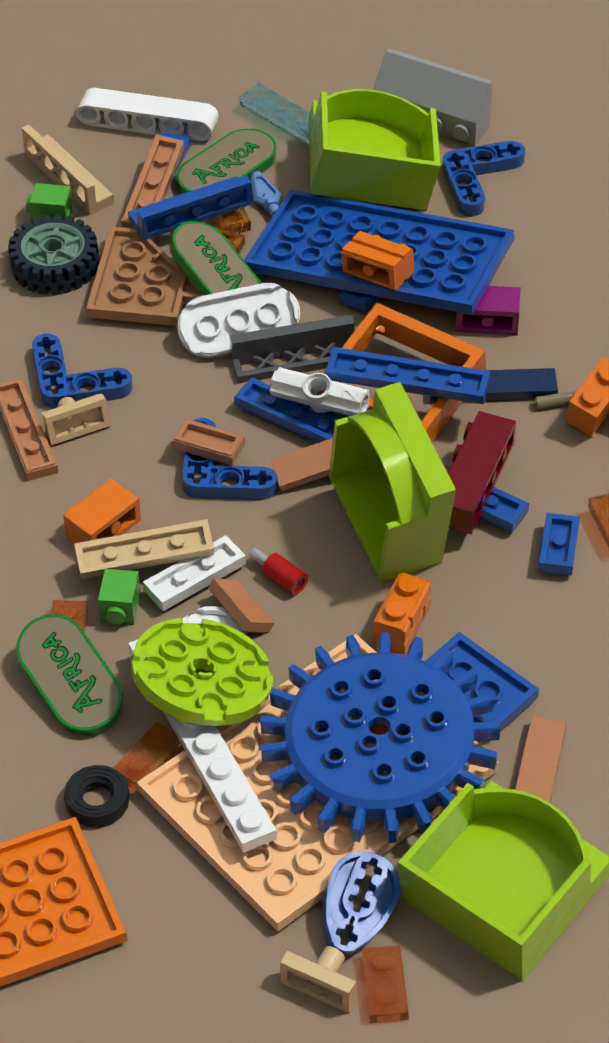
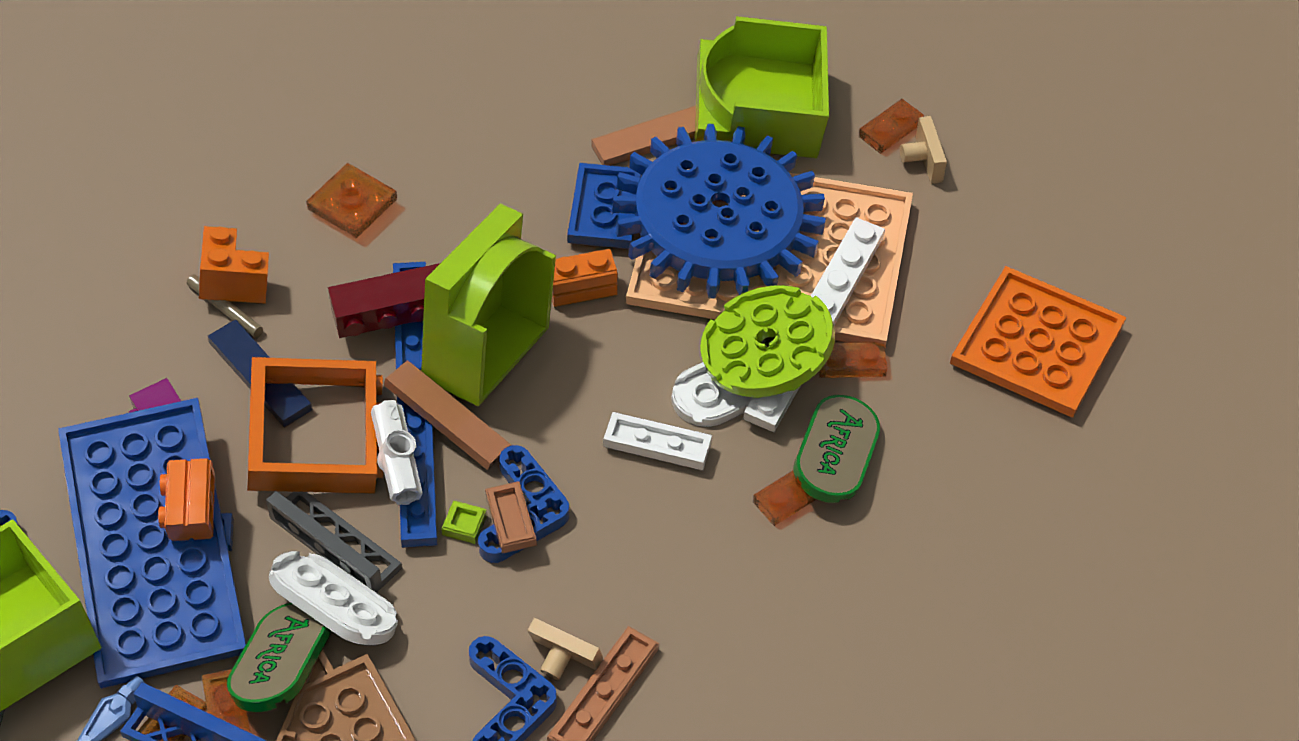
camera: 130 degrees left, 5 degrees up
(101, 814) = (919, 349): black tyre -> none
(102, 514) = (660, 542): orange brick -> none
(119, 596) = (731, 471): bright green brick -> none
(144, 548) = (673, 476): tan fence -> none
(241, 605) = (663, 387): nougat tile -> none
(242, 424) = (464, 522): none -> lime tile
(280, 571) = (602, 386): red piece -> none
(341, 889) = (852, 162): piece -> none
(415, 375) = (331, 392): blue plate -> none
(559, 544) = (417, 229): blue plate -> none

